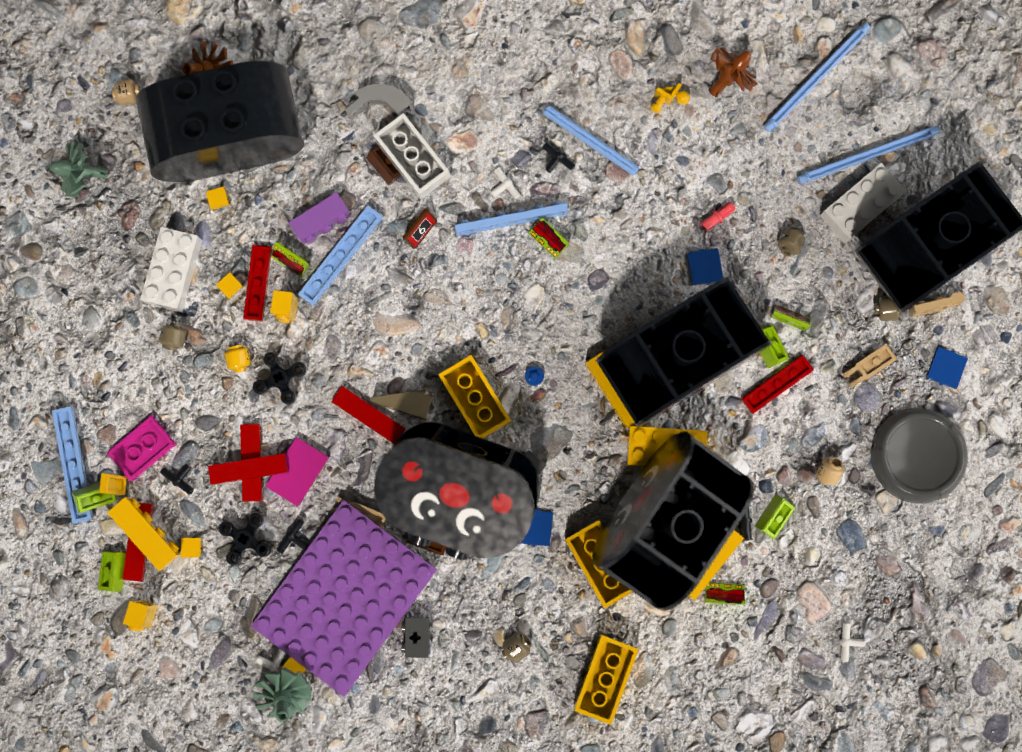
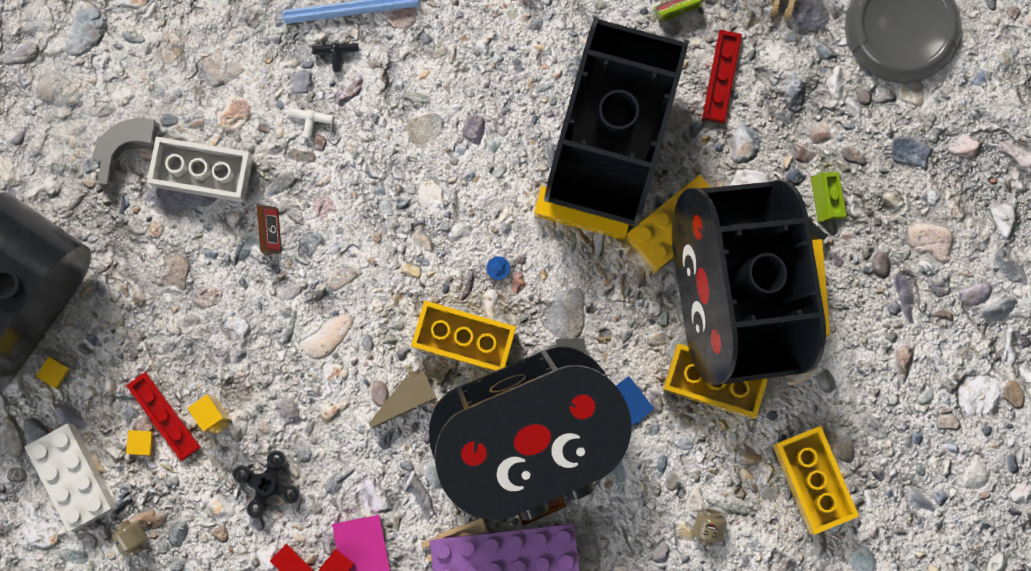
camera: 40 degrees left, 0 degrees up
(237, 358) = (209, 502): yellow head -> none
(289, 259) = (174, 367): slope -> none
(320, 219) = (168, 304): medium lavender brick -> none
(340, 256) = (218, 321): light blue plate -> none
(368, 415) = (379, 442): red tile -> none
(383, 165) = (181, 202): reddish brown slope -> none
(518, 217) = (350, 136): light blue plate -> none
(548, 238) = (395, 131): slope -> none
(705, 266) = (560, 29): blue piece -> none
(724, 593) = (849, 305): slope -> none
(776, 352) = (696, 50): lime slope -> none
(830, 471) = (839, 111): tan head -> none
(846, 641) = (992, 249): white piece -> none

